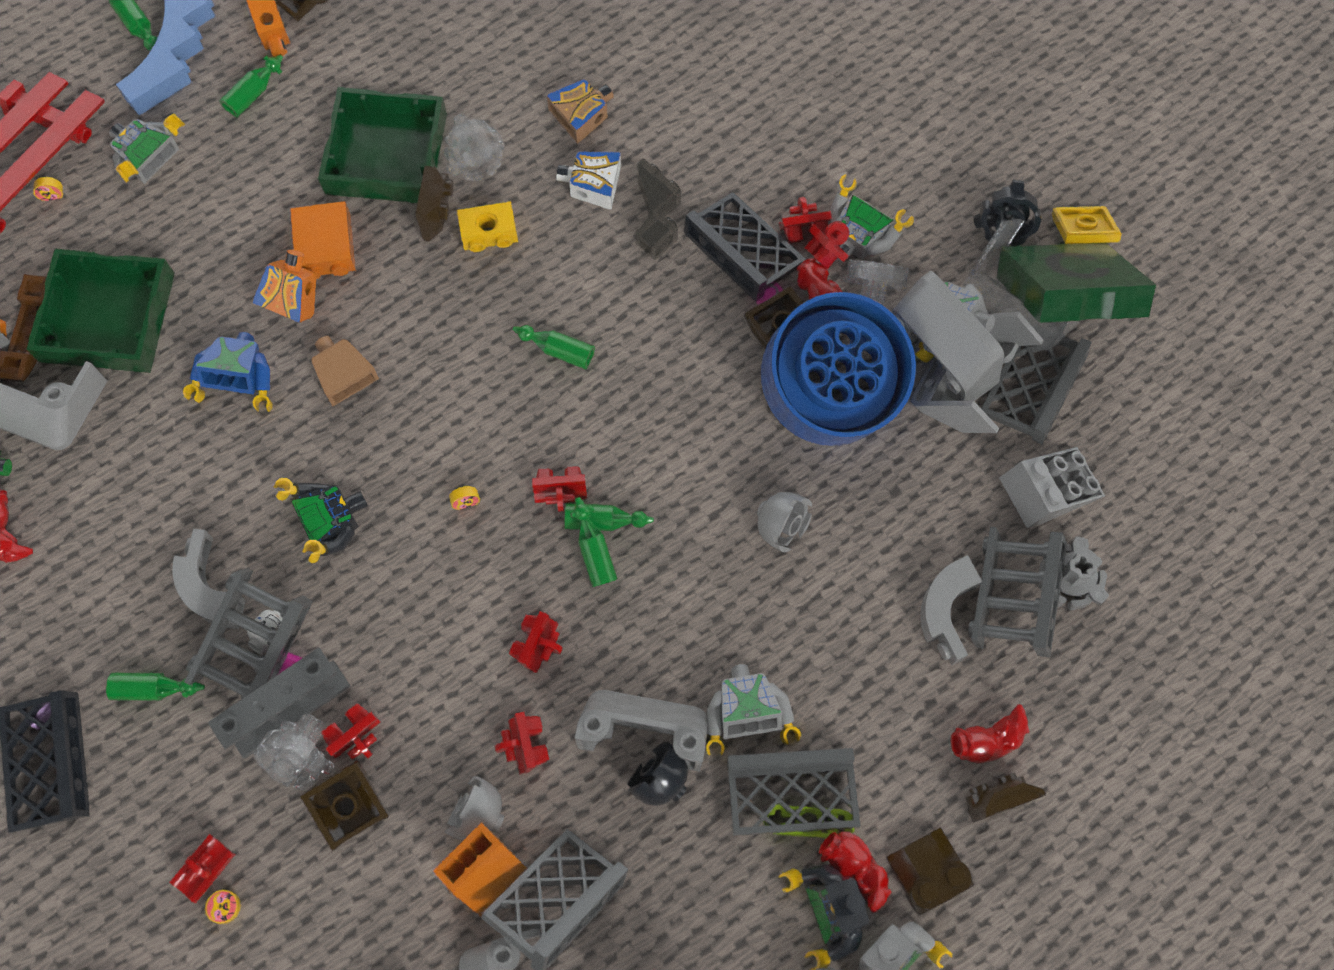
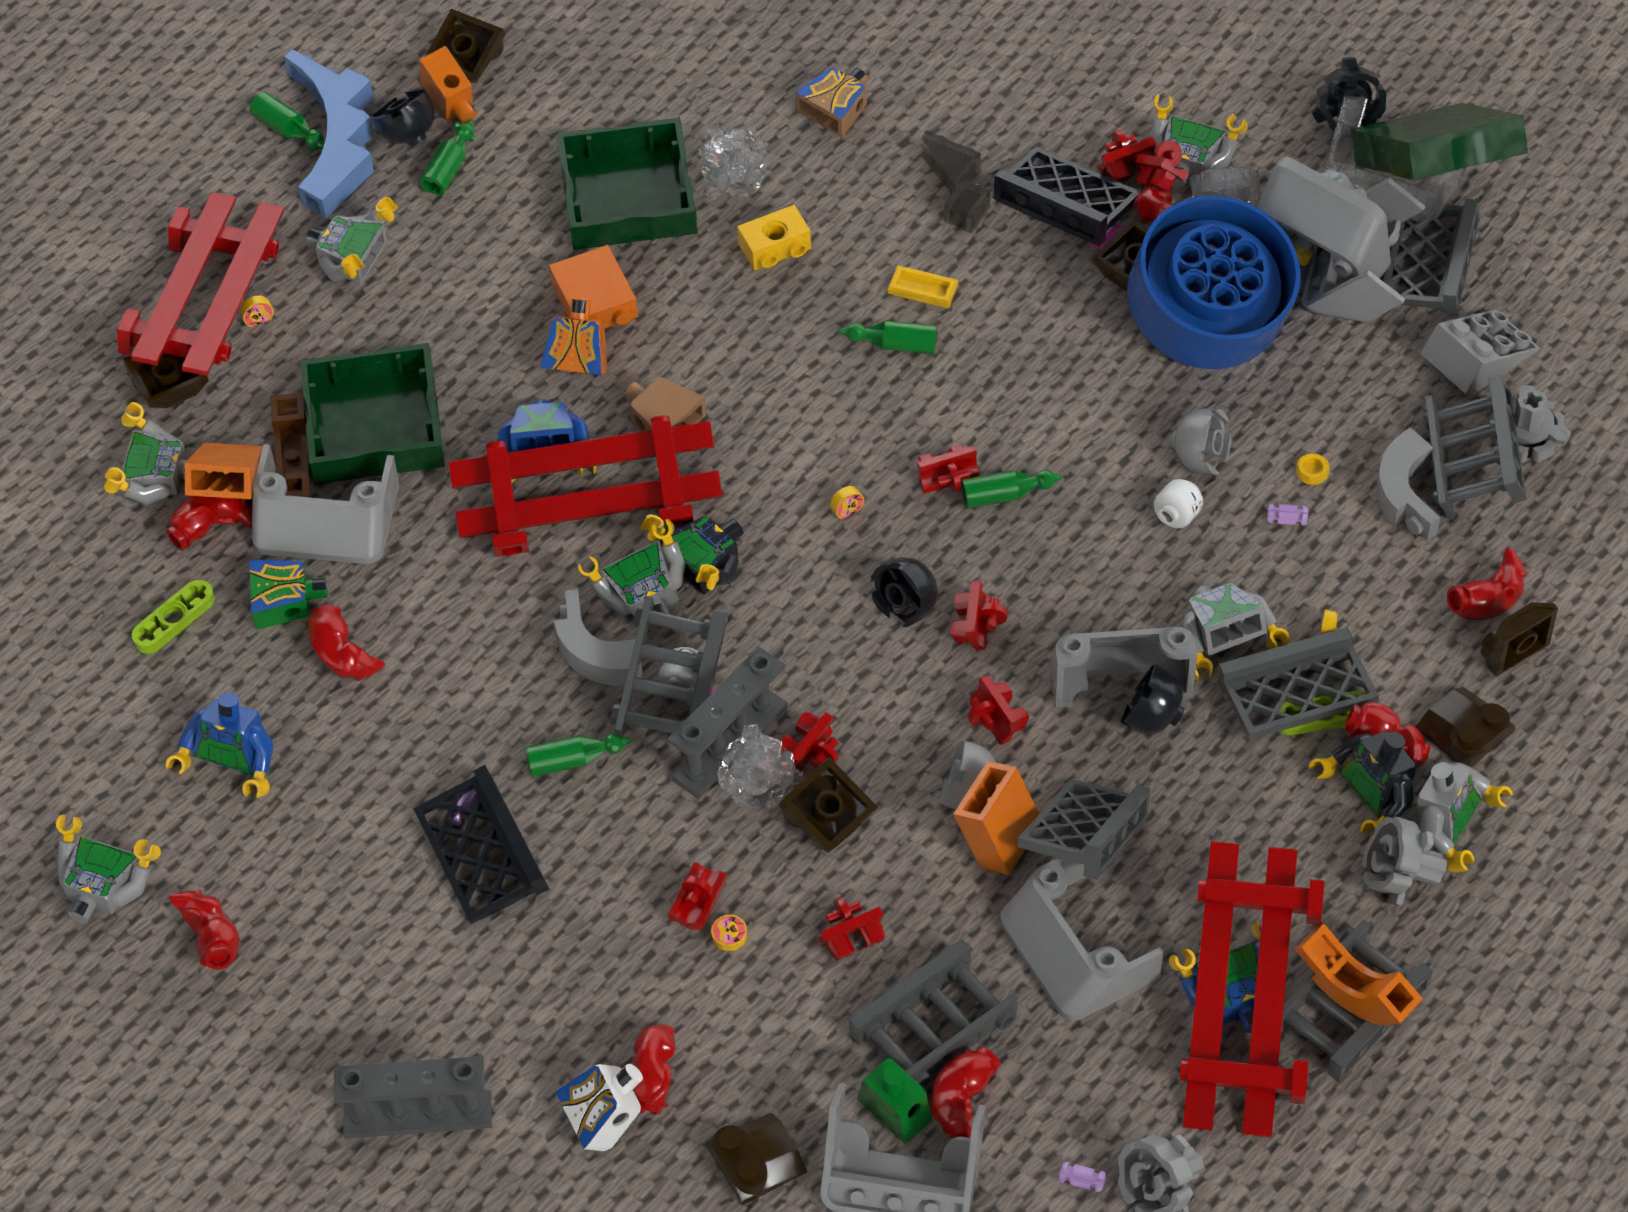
camera: 10 degrees left, 15 degrees down
(226, 42) = (405, 118): none -> black cylinder
(263, 533) = (647, 572): none -> torso
(315, 449) = (510, 516): none -> red fence
(324, 931) = (837, 936): none -> red hips
(433, 202) = (711, 224): dark brown slope -> none
(484, 597) = (903, 583): none -> black cylinder
(592, 177) = (874, 164): torso -> none
(593, 547) = (1007, 512): green wheel -> none
(597, 302) = (922, 286): none -> yellow tile
(745, 574) = (1178, 503): none -> white head
(837, 607) = (1287, 514): none -> lavender piece
(838, 735) = (1329, 621): none -> yellow tile
(872, 566) = (1312, 469): none -> yellow tile
(1086, 225) = (1436, 91): yellow tile -> none

